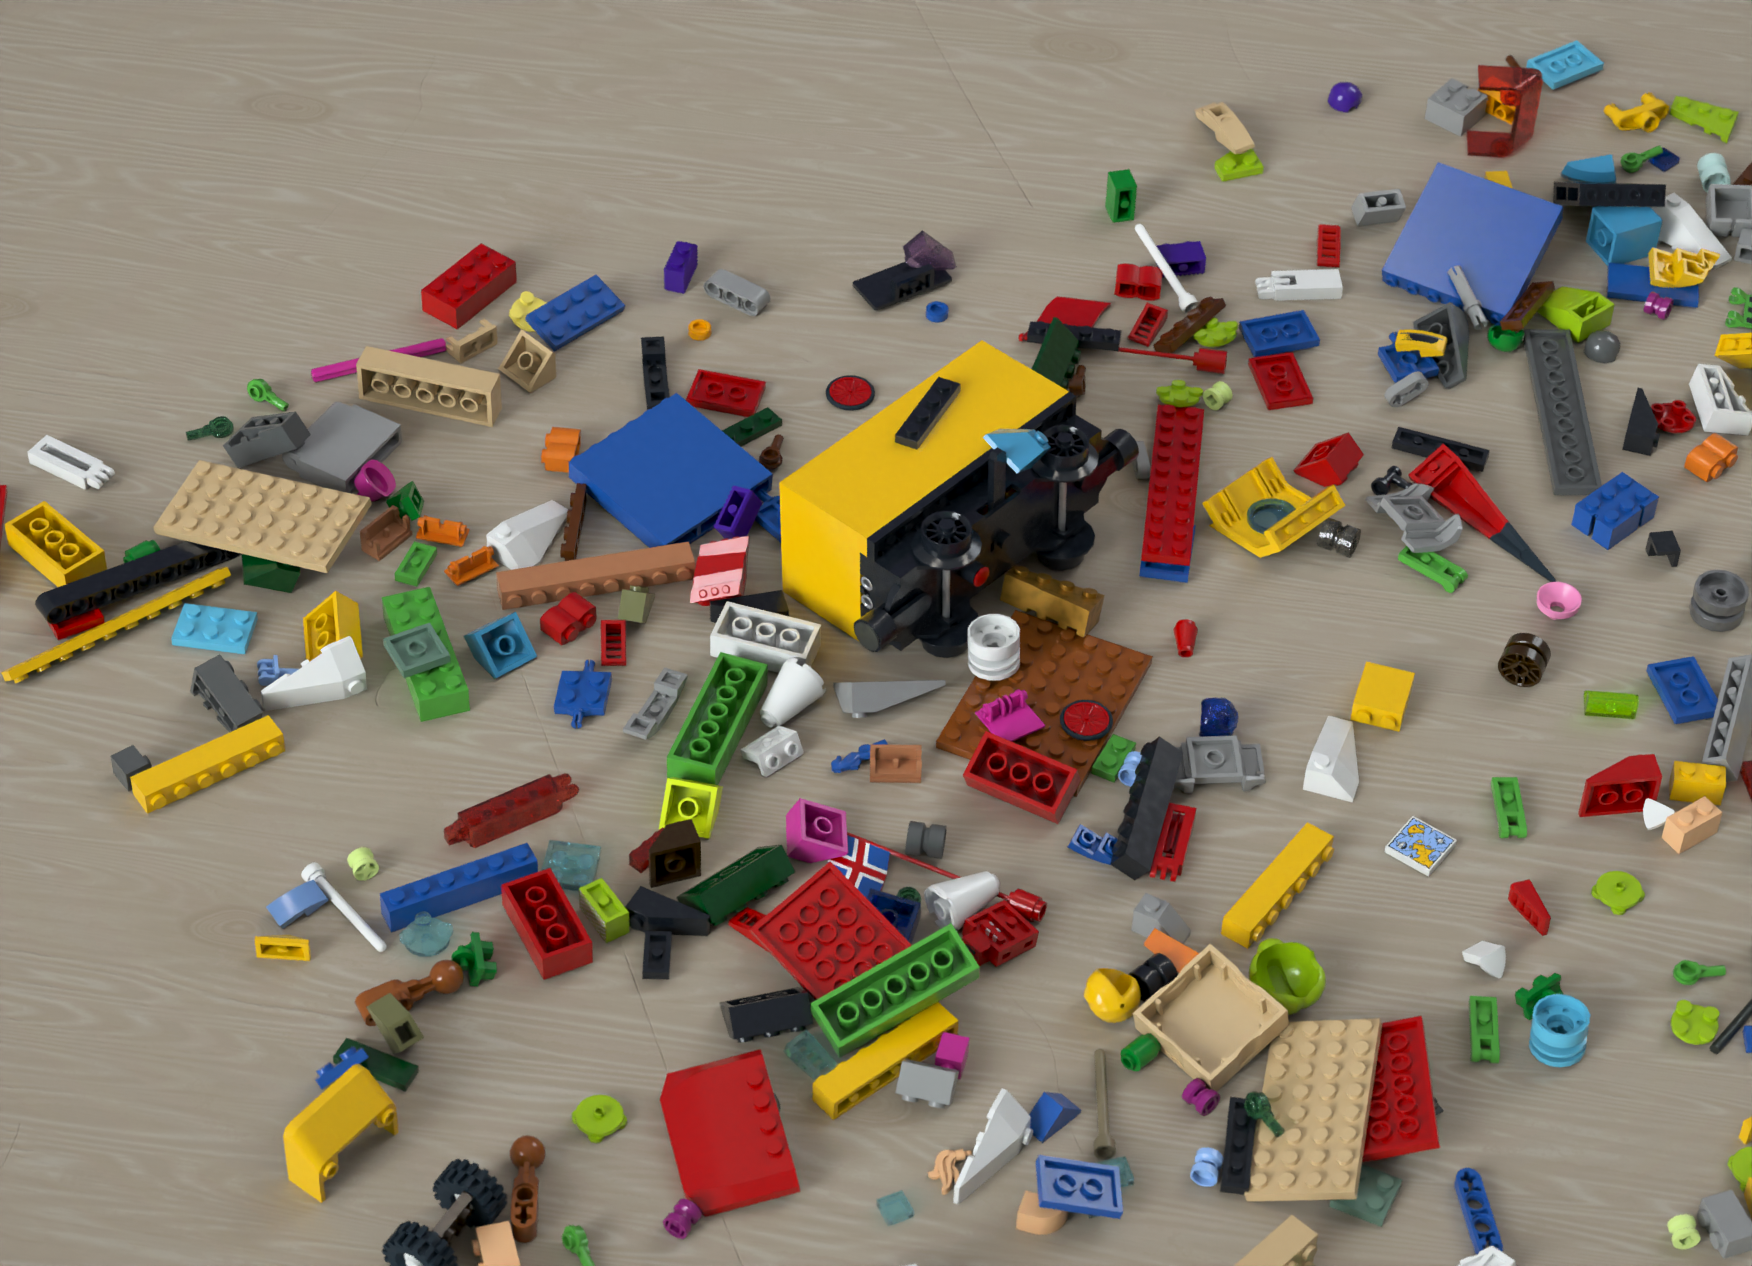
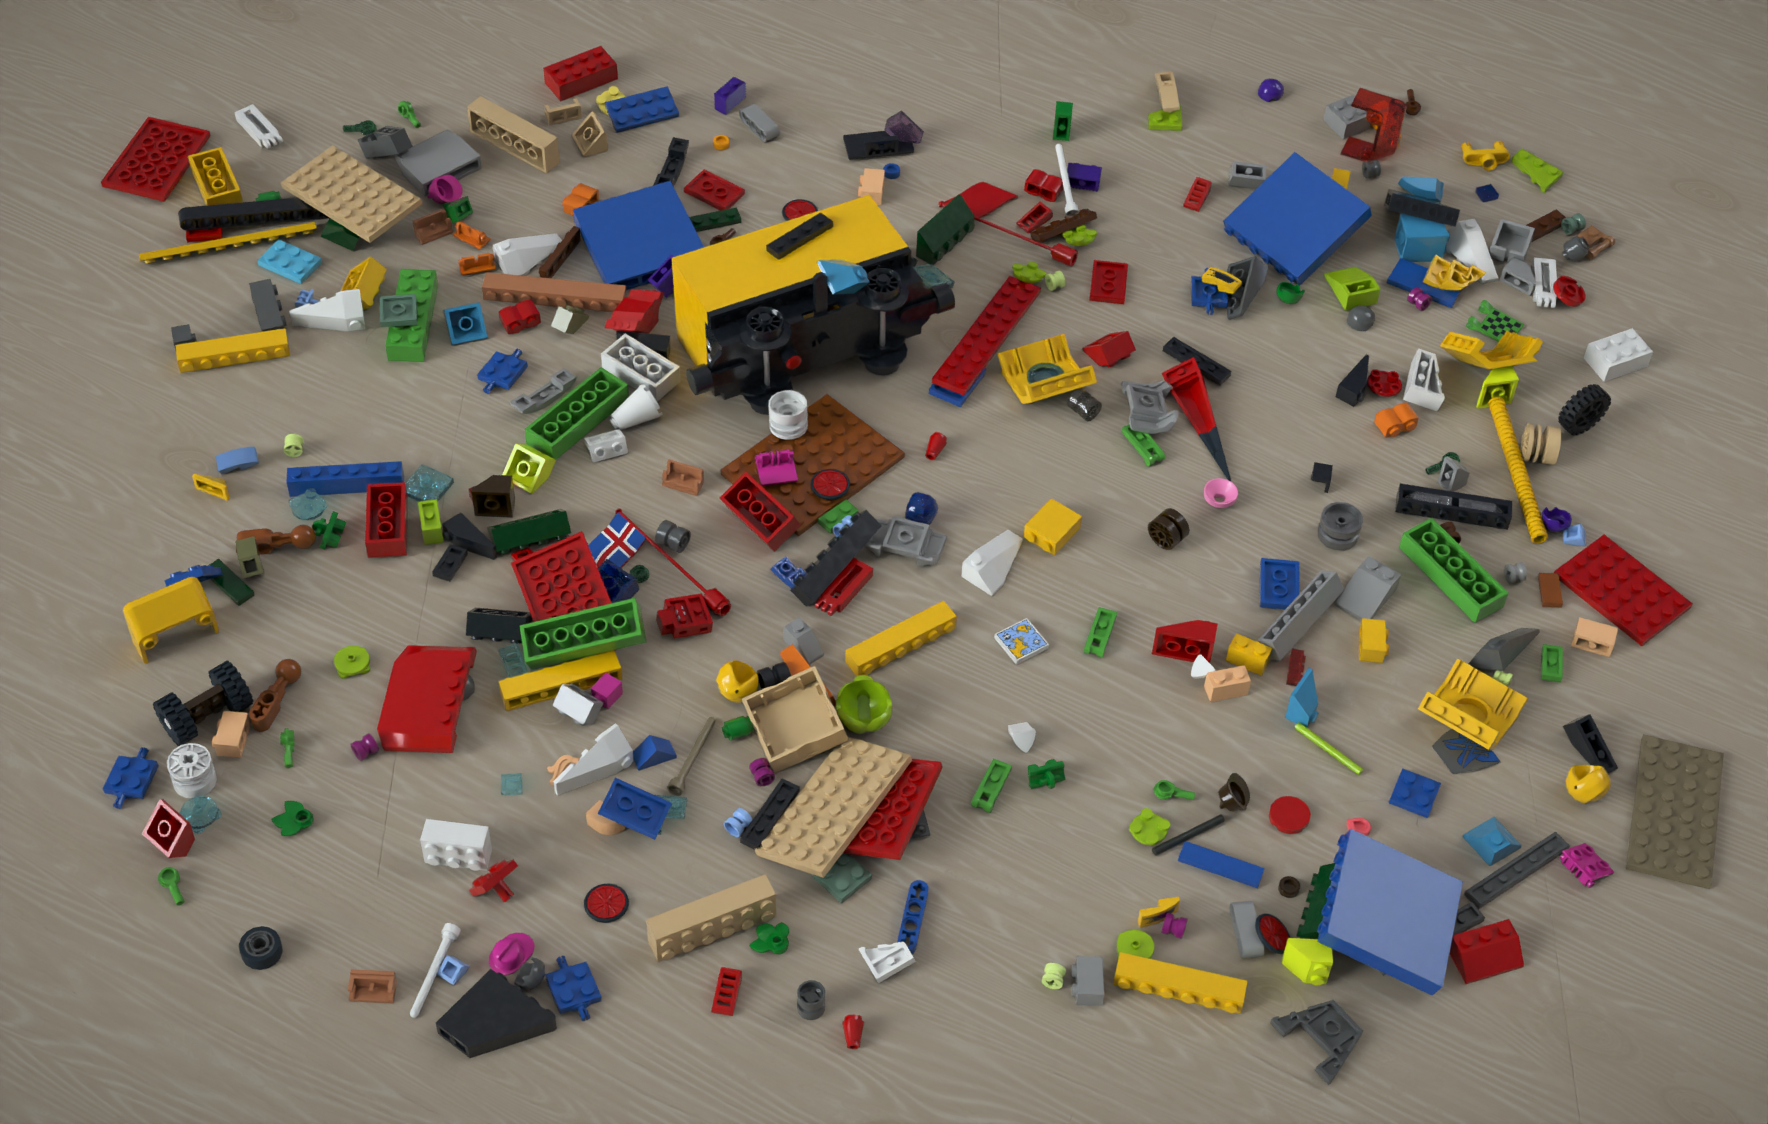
camera: 20 degrees right, 5 degrees up
(316, 872) = (260, 444): white piece -> none
(349, 366) = (513, 108): dark pink axle -> none
(415, 564) = (441, 253): bright green plate -> none
(511, 811) = (408, 437): clear red hinge -> none
(613, 627) = (541, 330): red slope -> none
(815, 832) = (601, 509): dark pink slope -> none
(853, 760) = (657, 467): blue animal -> none
(875, 696) = (692, 426): light grey wedge -> none
(926, 337) = (872, 184): none -> light nougat brick
(961, 897) = (672, 583): white cone -> none
(1052, 599) = (854, 393): pearl gold wedge -> none
(1078, 383) = (960, 246): reddish brown plate -> none
(1088, 337) = (983, 214): black plate -> none
(1141, 463) = (974, 310): light grey beam -> none
(1258, 1107) = (793, 791): clear green plate -> none
(1279, 333) = (1125, 248): blue plate -> none
(1300, 285) = (1161, 217): white hinge -> none
(1381, 485) = (1138, 375): black piece -> none
(1406, 389) = (1194, 311): light grey beam -> none
(1471, 305) = (1273, 251): light grey pin -> none
(1517, 163) = (1371, 168): none -> dark grey wheel
(1527, 305) = (1316, 273): reddish brown plate -> none
(1529, 905) = (1073, 700): red slope -> none
(1559, 1030) = (1041, 803): medium azure wheel -> none
(1562, 412) = (1302, 358): dark grey plate -> none
(1566, 64) = (1449, 105): medium azure plate -> none
(1610, 704) = (1218, 579): clear neon green panel -> none
(1618, 510) = (1300, 439): blue piece -> none
(1618, 891) = (1148, 716): lime piece -> none
(1633, 162) = (1461, 189): bright green plate -> none
(1713, 170) = (1517, 210): light aqua wheel -> none

